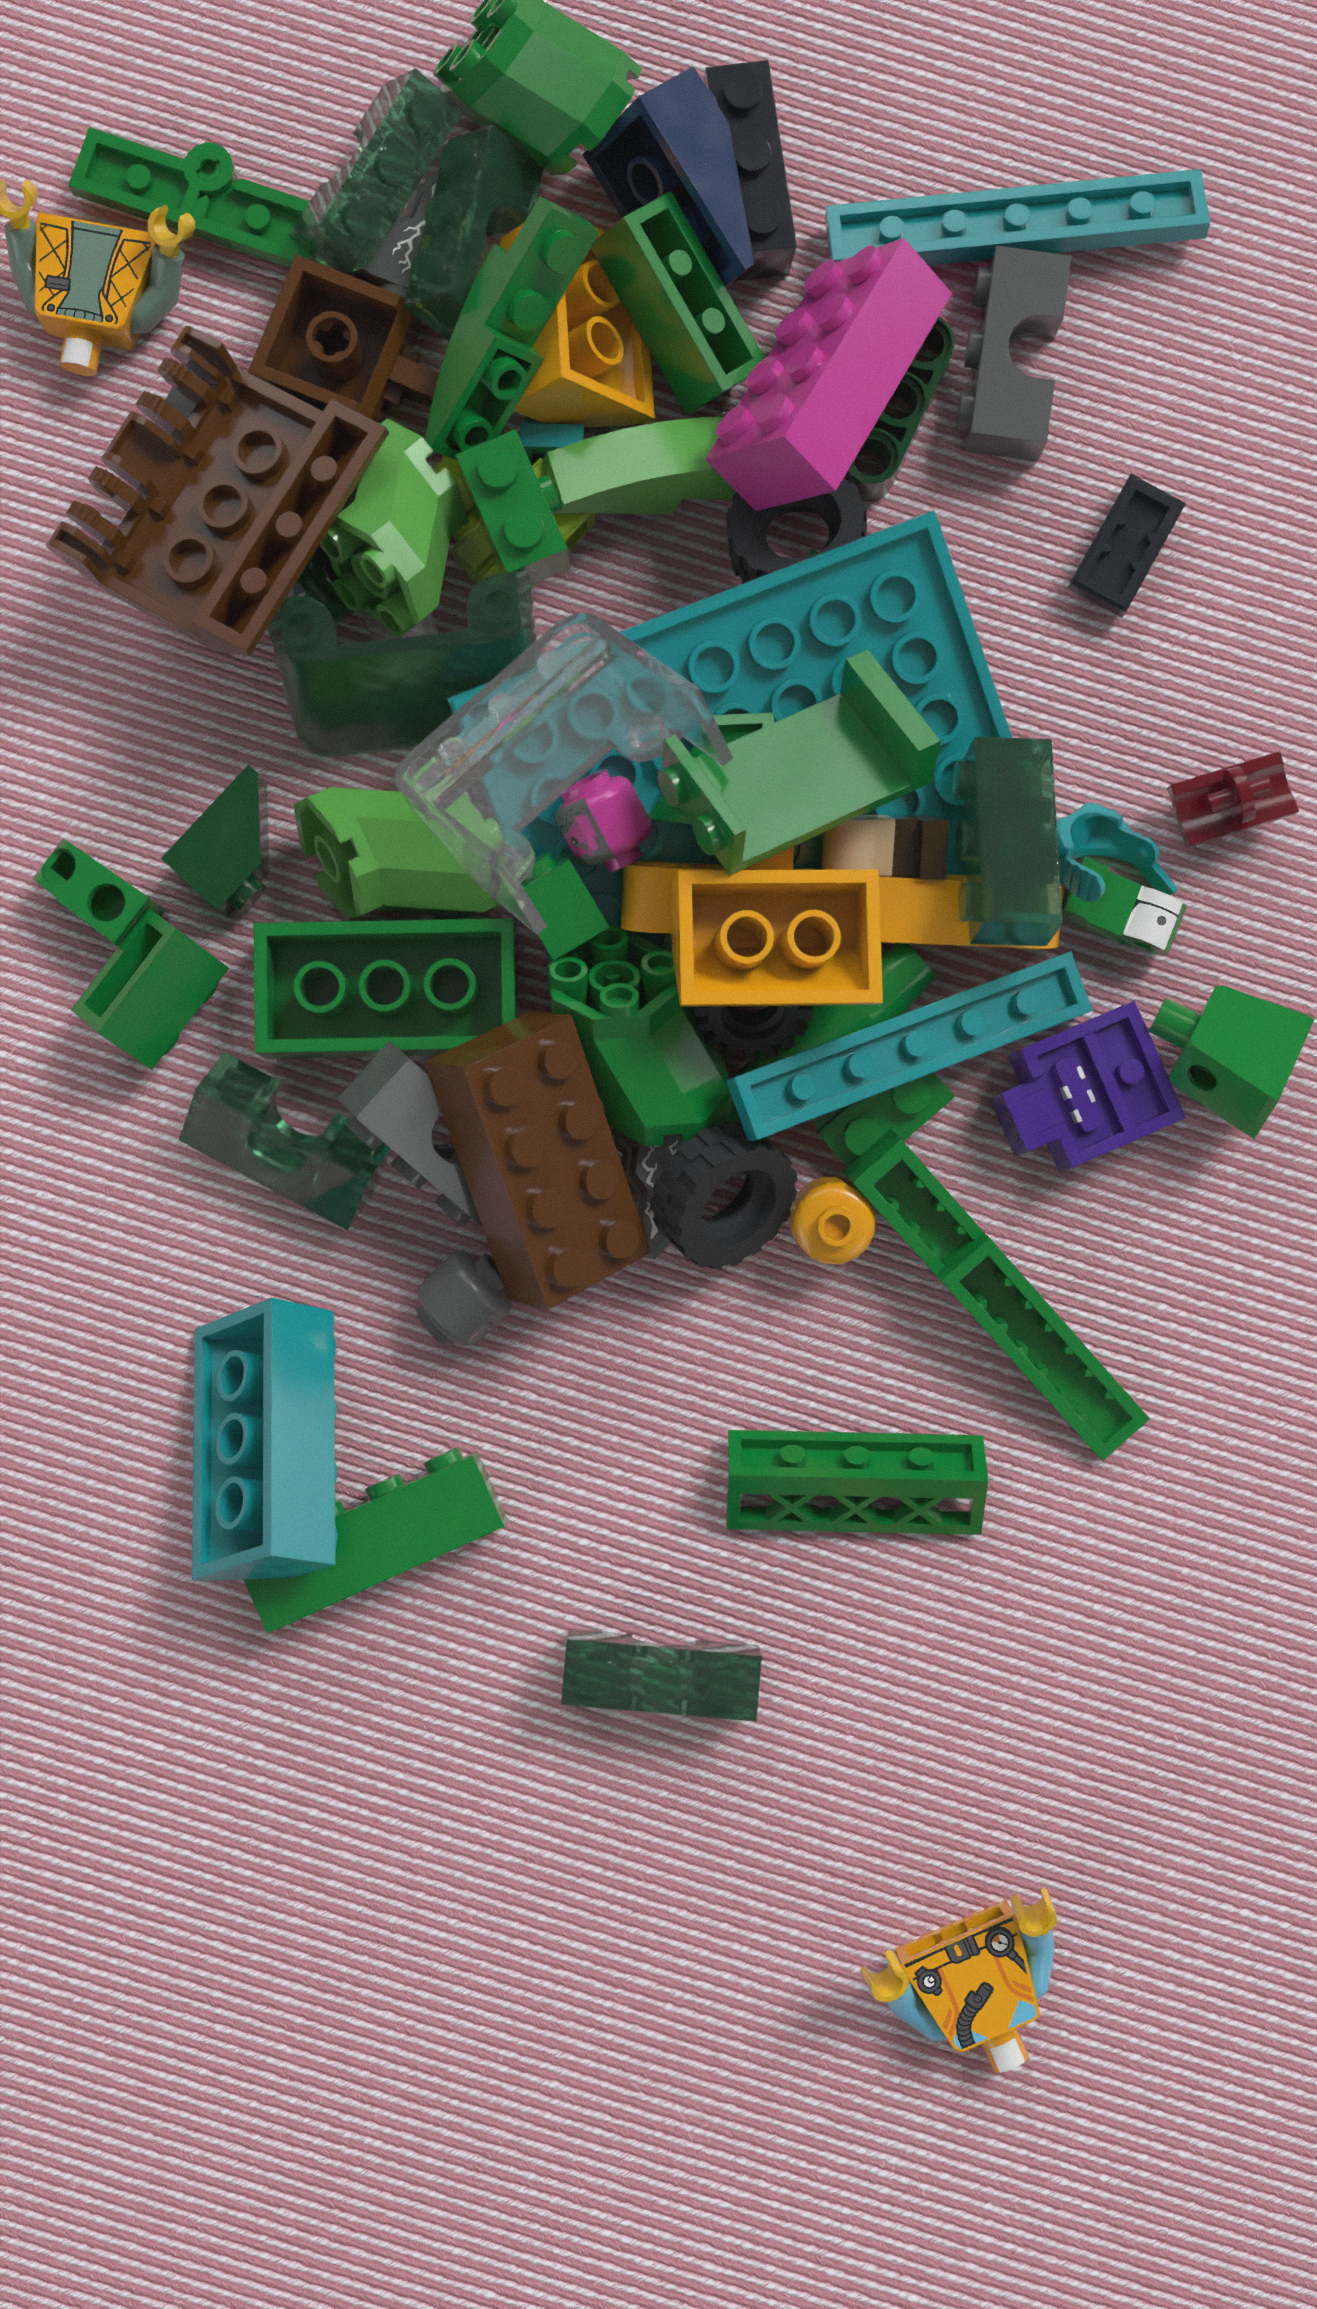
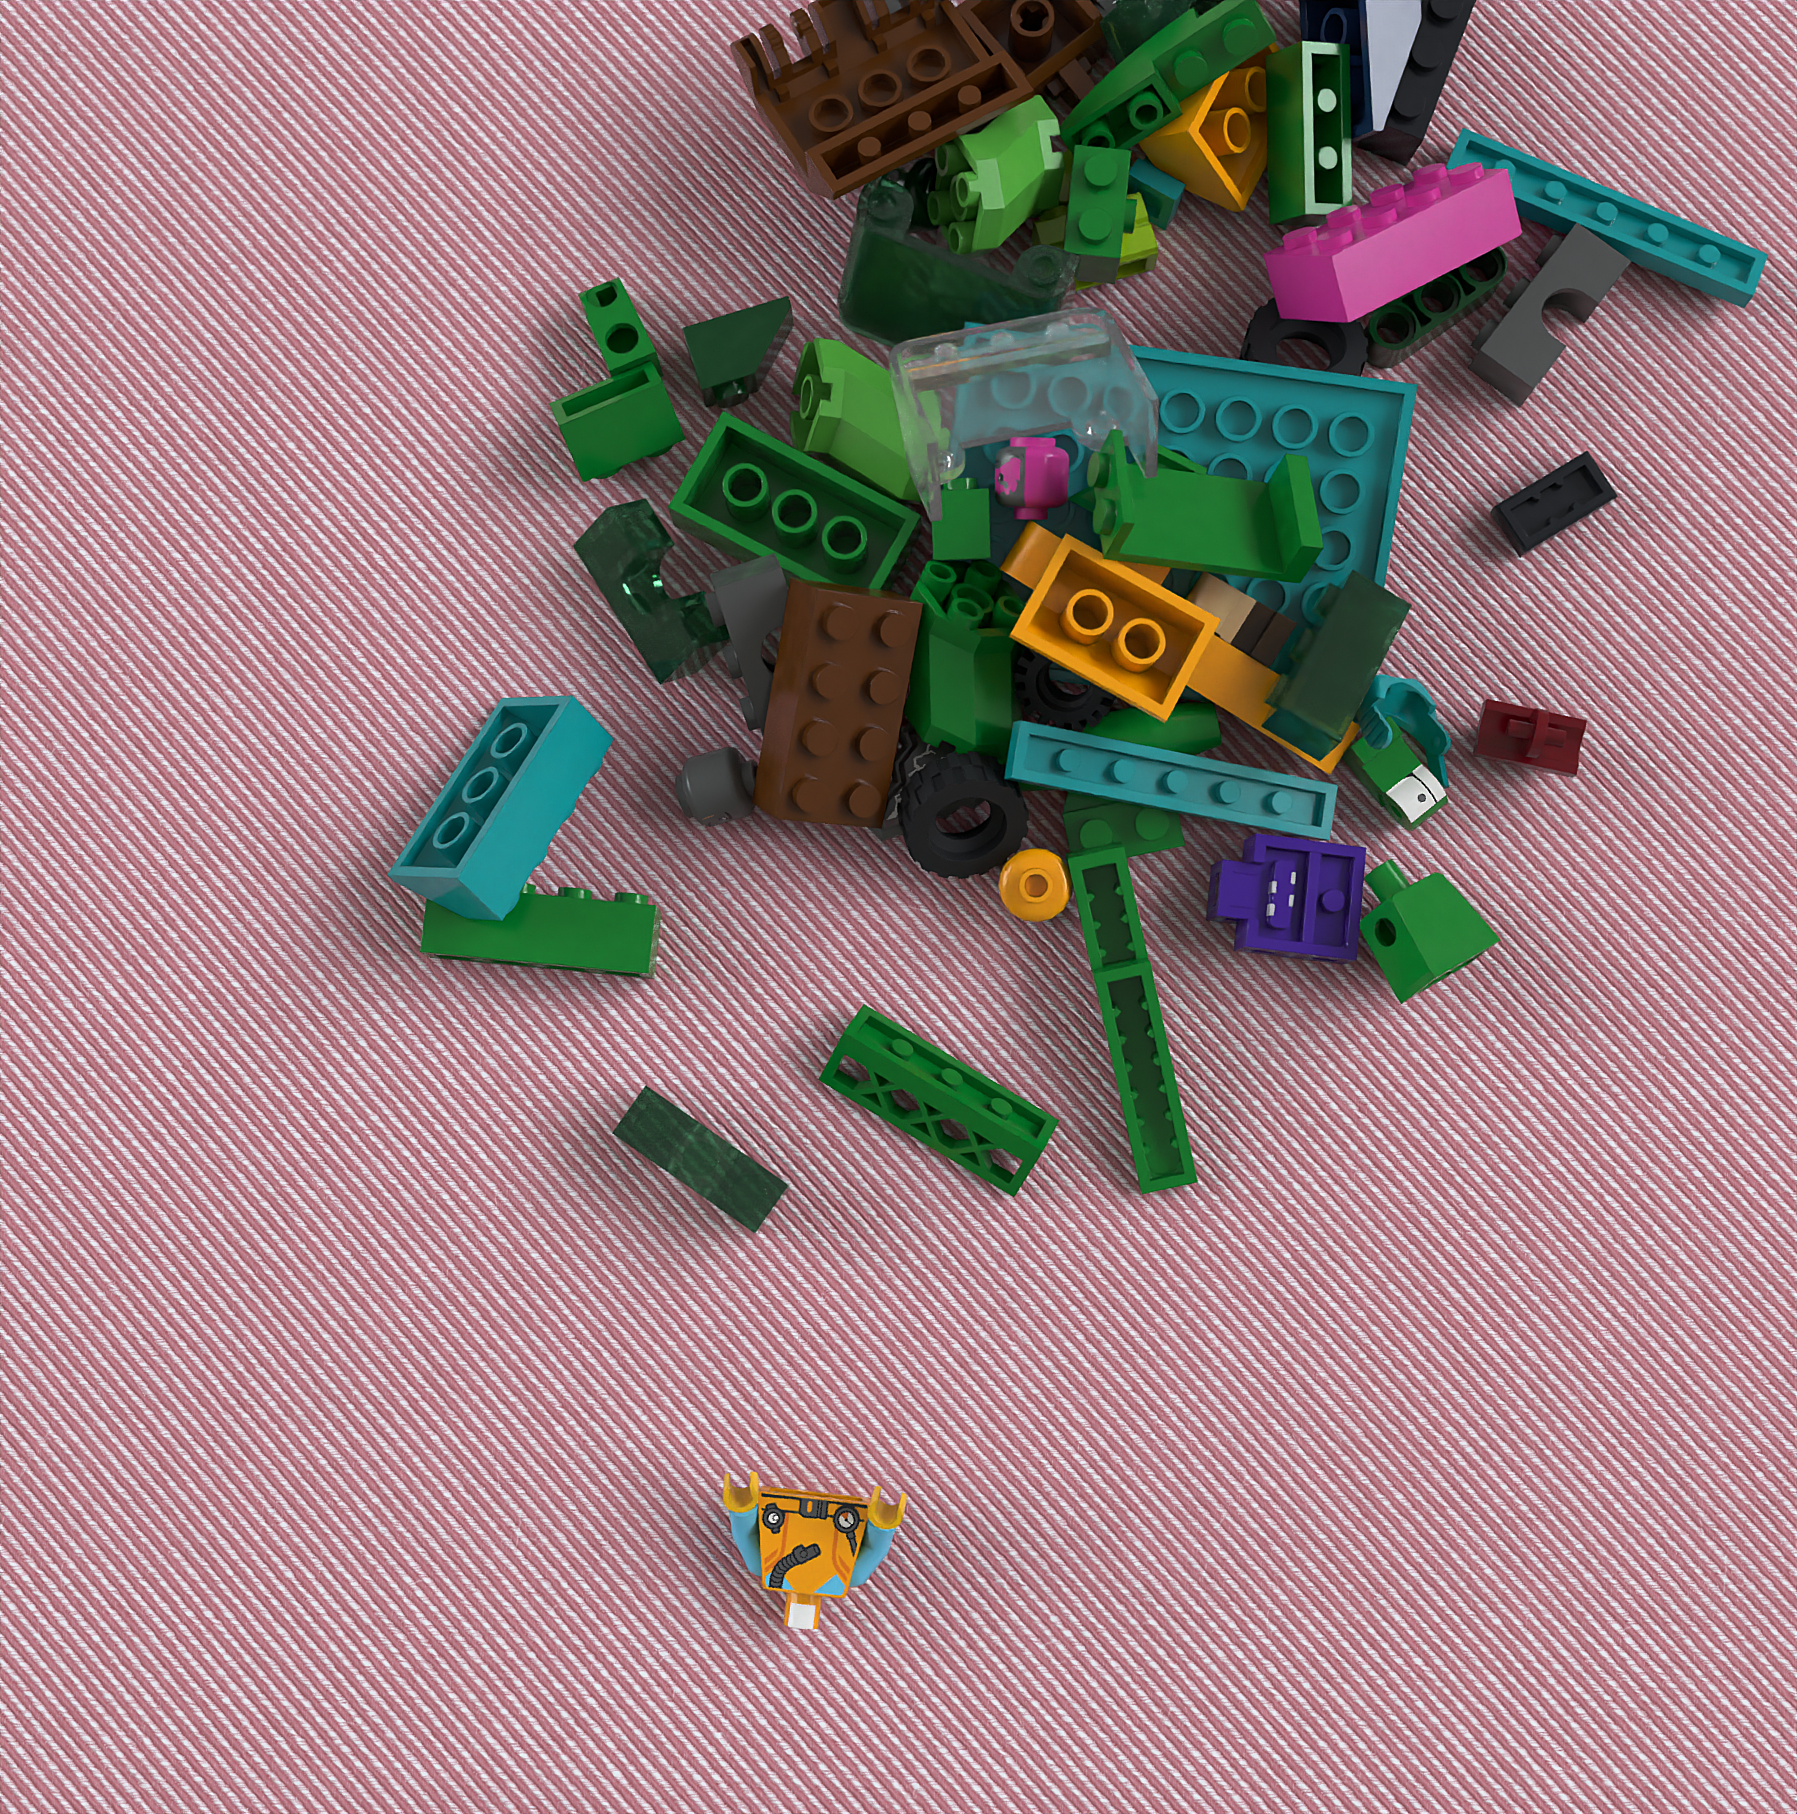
camera: 35 degrees right, 5 degrees down
(638, 469) = (1208, 240): bright green slope -> none

